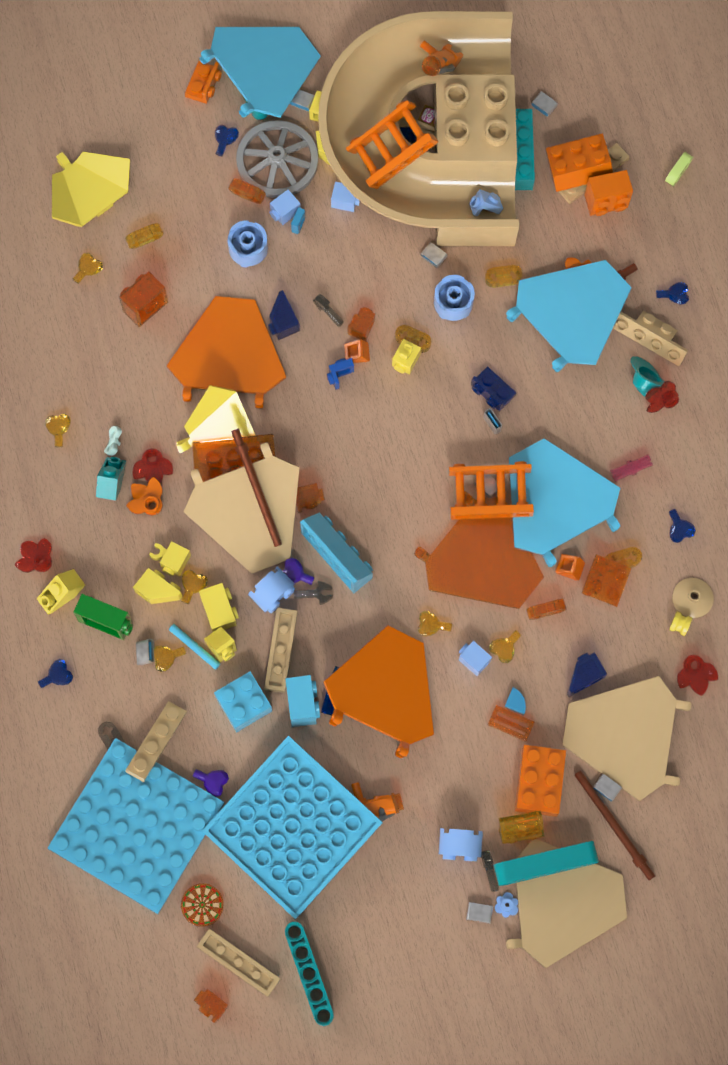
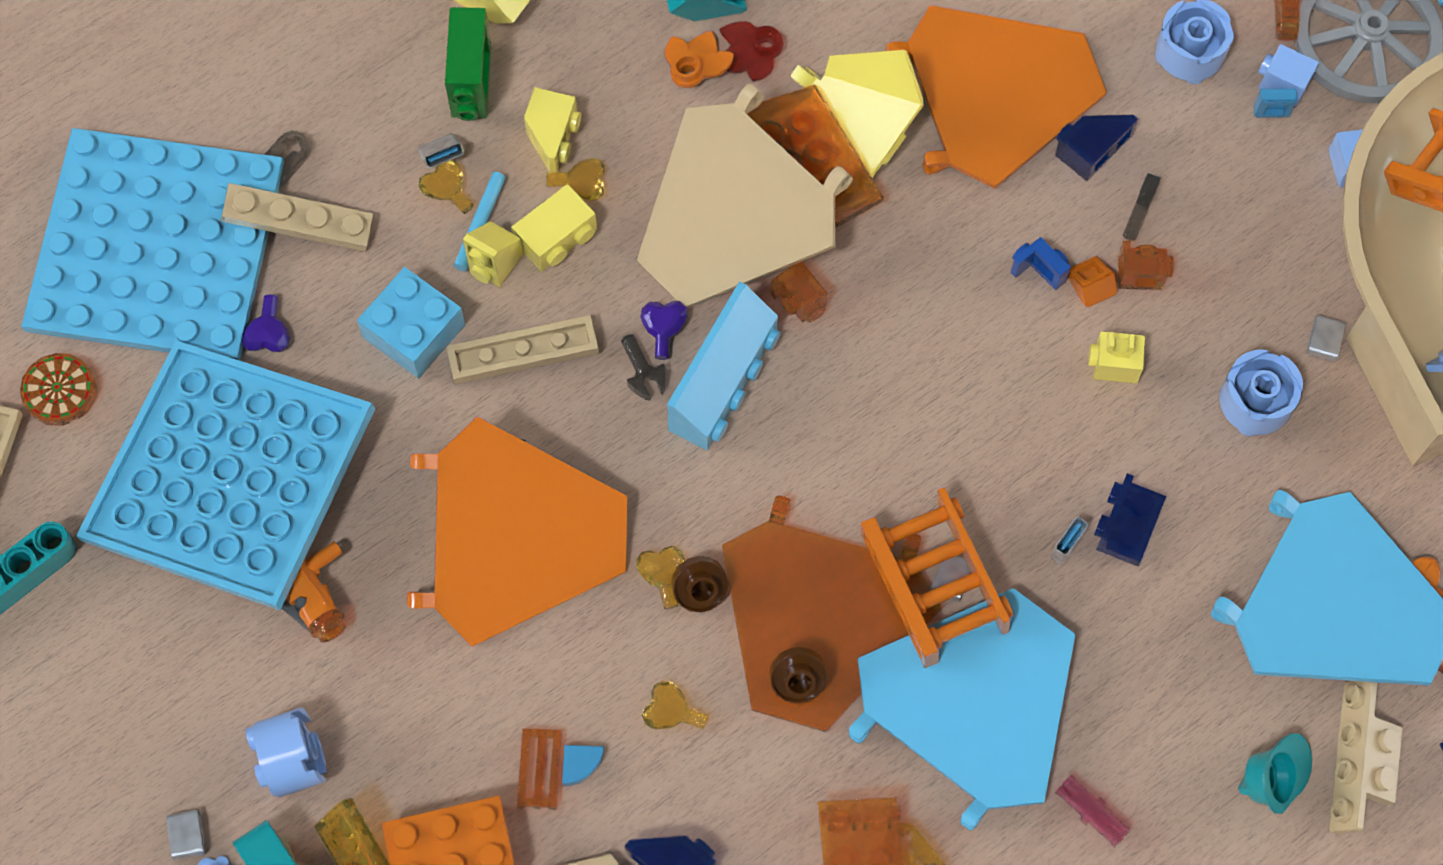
camera: 70 degrees right, 5 degrees down
(57, 674) = (357, 43): clear blue rock -> none
(172, 559) = (609, 132): light yellow brick -> none
(242, 450) = (819, 141): copper bar -> none
(272, 589) = (614, 293): light blue brick -> none
(301, 702) = (440, 405): medium azure brick -> none
(415, 336) = (1166, 359): clear yellow beam -> none
(447, 607) = (699, 584): none -> reddish brown plate
(474, 657) = (629, 662): light blue brick -> none
(488, 865) = (276, 813): clear smoke bar -> none
(502, 274) = (1347, 464): clear yellow beam -> none
(515, 577) = (798, 675): none -> reddish brown plate
(546, 609) = (766, 753): clear orange beam -> none
(570, 566) = (864, 771): orange slope -> none
(662, 397) = (1250, 816): clear red plate -> none

